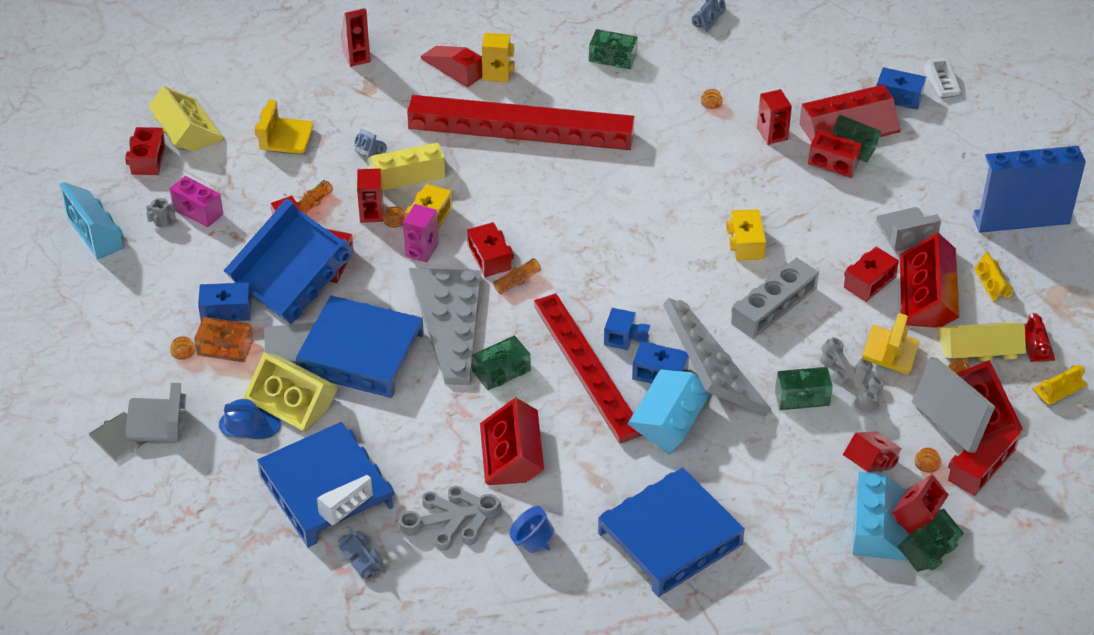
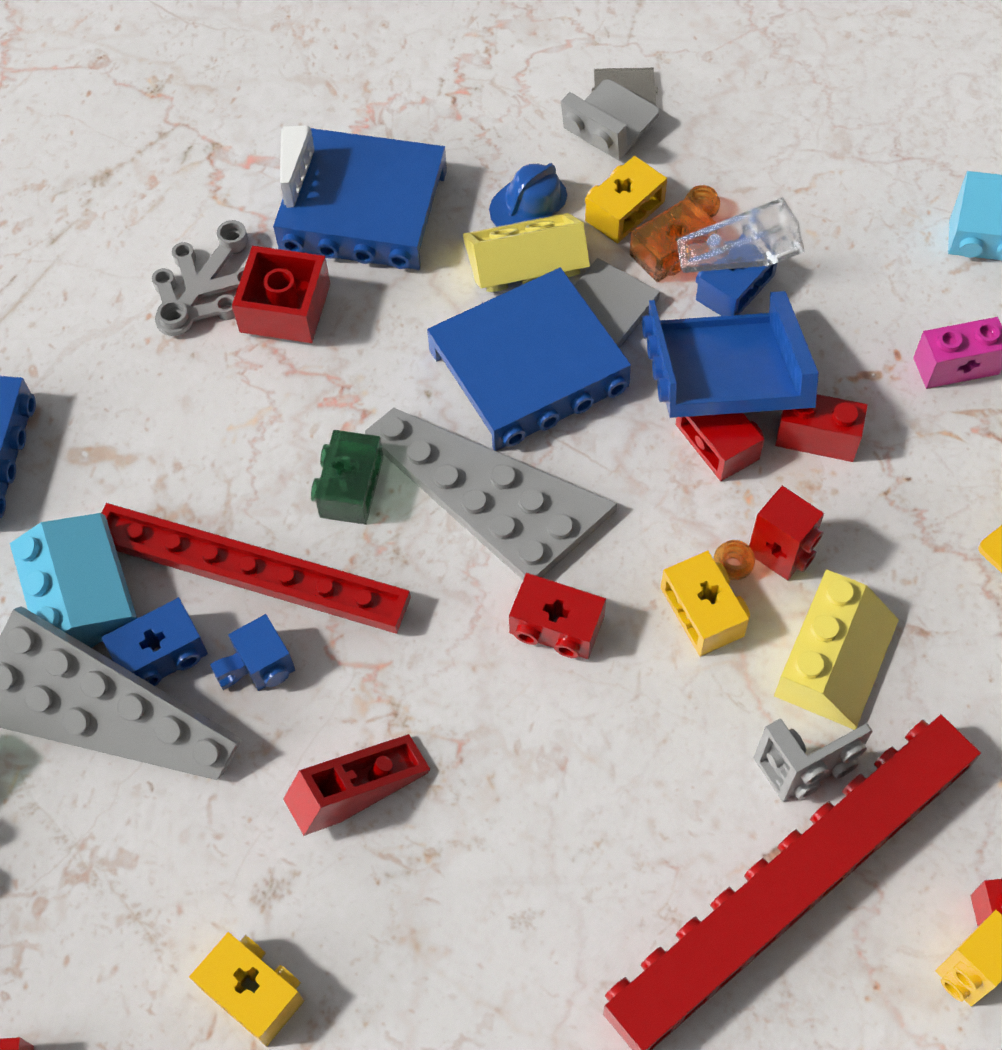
camera: 135 degrees right, 15 degrees up
(160, 212) = (973, 305): light grey gear -> none
(213, 374) = (625, 199): none -> yellow brick
(214, 287) = (743, 241): none -> clear slope
(313, 197) = (862, 492): clear orange pin -> none
(366, 143) = (924, 628): sand blue hinge -> none
(368, 560) = (242, 177): sand blue hinge -> none
(420, 233) = (650, 536): dark pink brick -> none
(429, 458) = (281, 294): none -> red brick
(468, 132) = (792, 772): none -> light grey bracket
(511, 444) = (219, 394): red slope -> none
(517, 276) = (478, 615): clear orange pin -> none
(532, 530) = (88, 319): blue piece -> none
(640, 259) = (353, 782): none -> red slope
(774, 297) = (95, 834): light grey brick -> none

